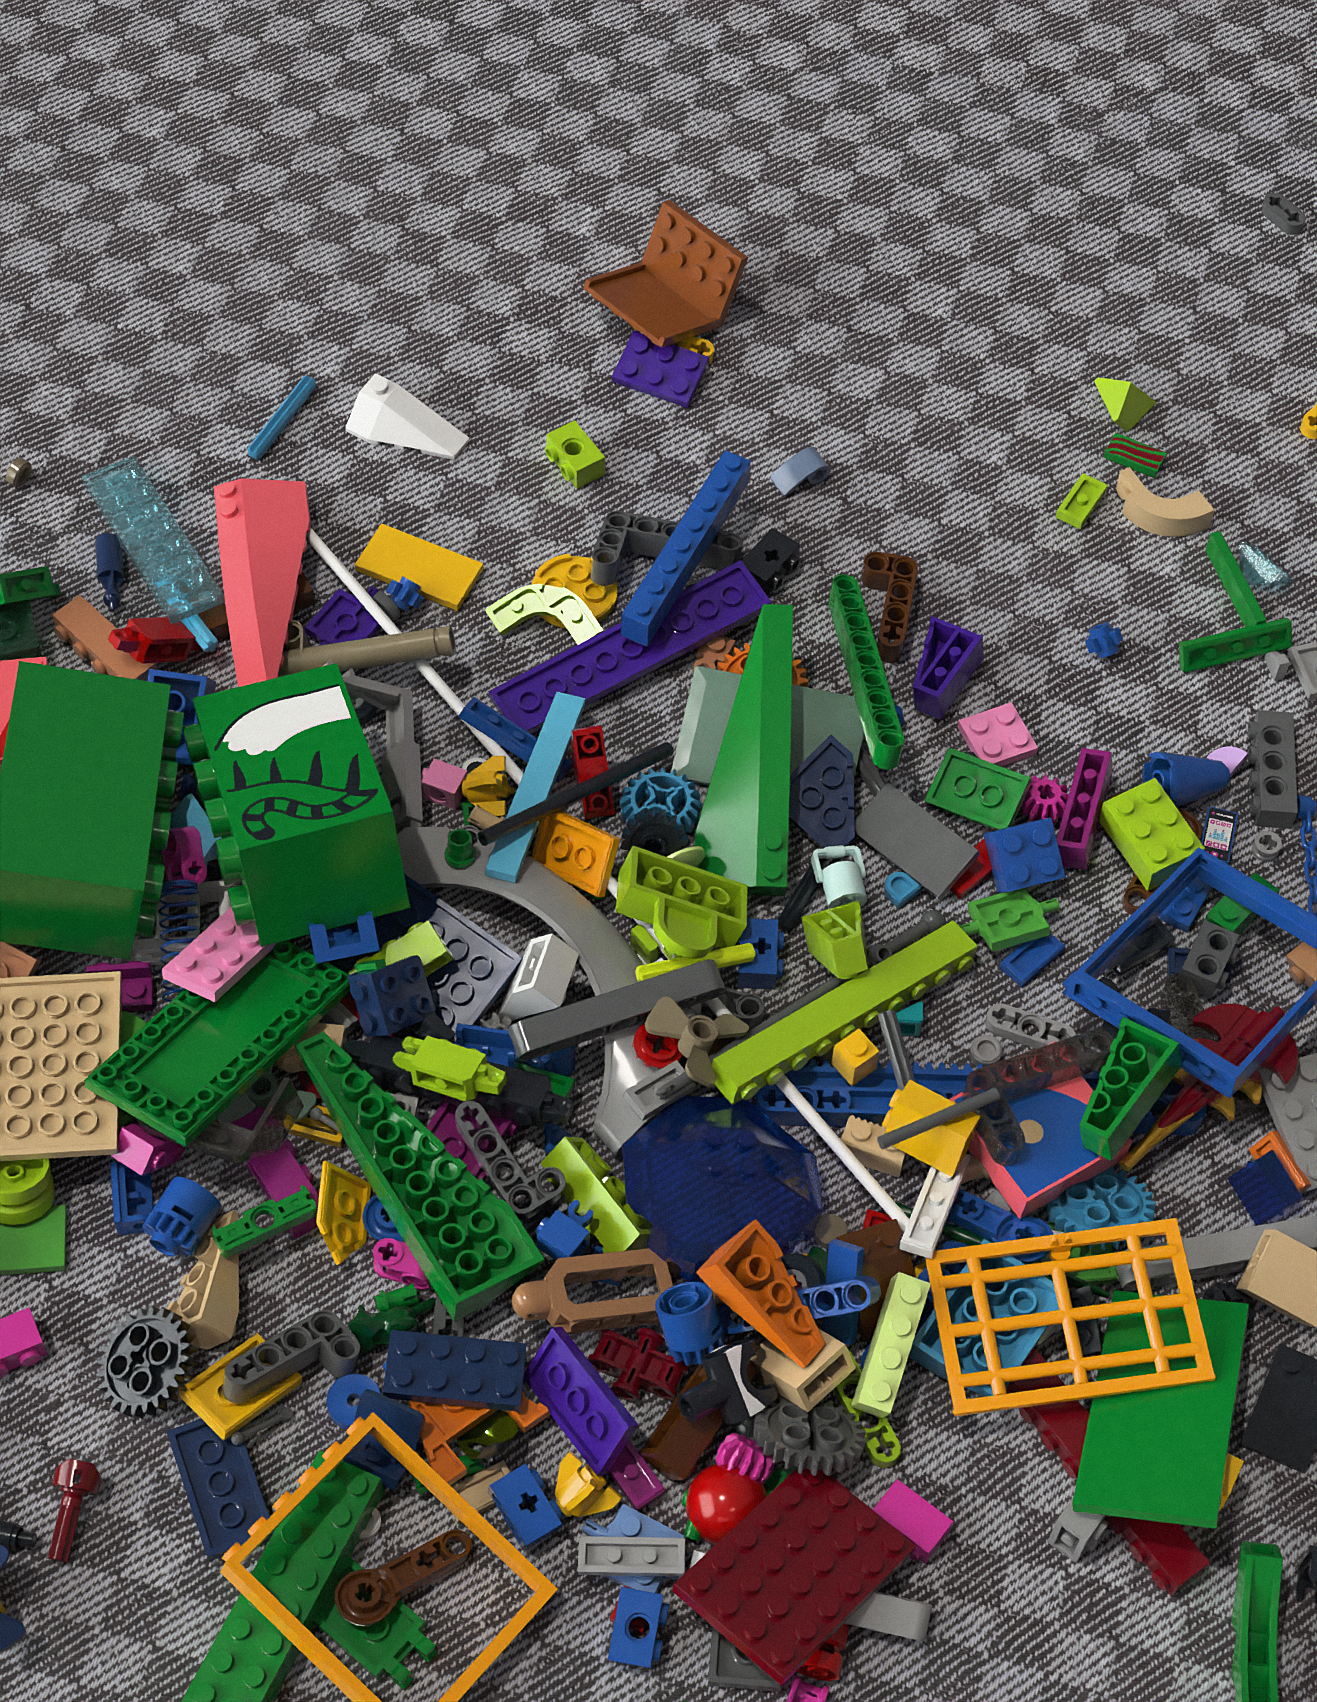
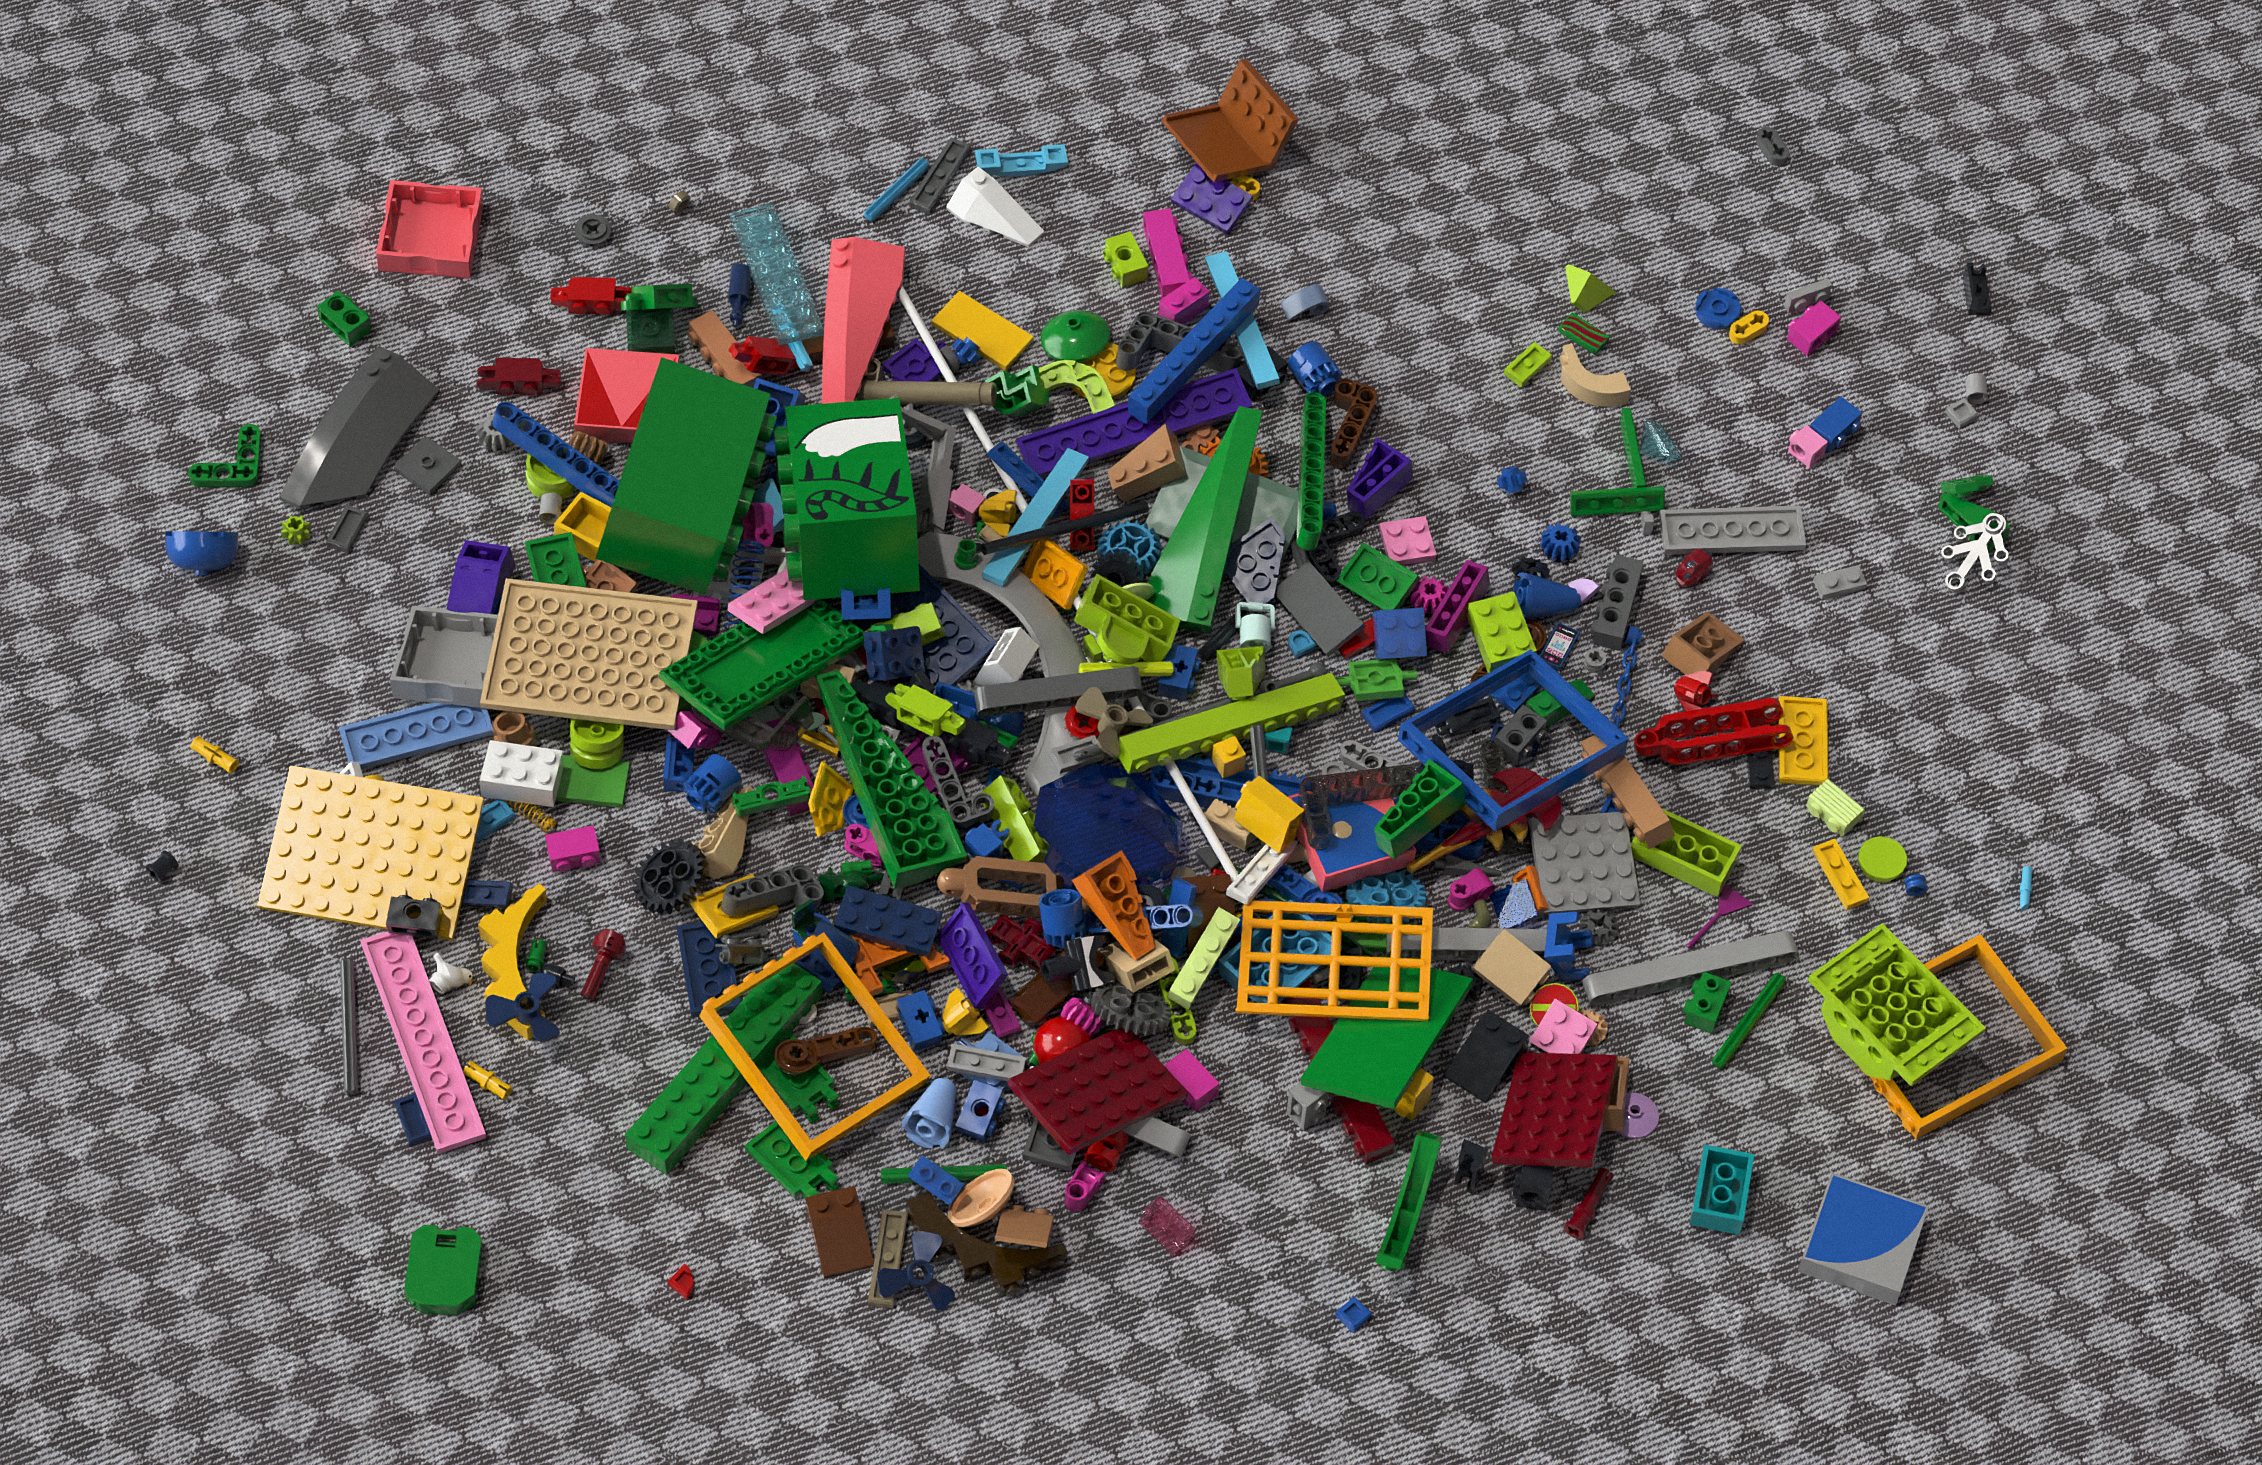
camera: 10 degrees right, 0 degrees up
(251, 1451) = (752, 951): none -> dark grey hinge
(330, 394) = (940, 176): none -> dark grey tile
(337, 1387) = (803, 918): none -> dark green bracket
(427, 364) = (1022, 164): none -> medium azure slope
(482, 633) = (1019, 392): none -> green brick
(534, 555) = (1075, 336): none -> green dish
(572, 1646) = (932, 1115): none -> light blue cone
(622, 440) = (1166, 250): none -> dark pink brick
(658, 492) = (1185, 302): none -> dark pink brick
(661, 697) = (1148, 465): none -> medium nougat wedge
(744, 517) = (1247, 333): none -> medium azure tile
(834, 546) = (1314, 368): none -> blue gear
(856, 1195) = (1208, 857): none -> dark grey tile
(924, 736) = (1326, 539): none -> black beam
(938, 1118) = (1271, 804): dark grey bar -> none
(1146, 742) = (1530, 566): none -> black gear
(1177, 1147) = (1456, 866): none -> dark grey piece
(1183, 706) = (1560, 542): none -> blue gear
(1202, 1177) = (1469, 889): none -> dark pink piece
(1228, 1211) = (1483, 916): none -> olive arm
(1279, 402) = (1718, 308): none -> blue tile

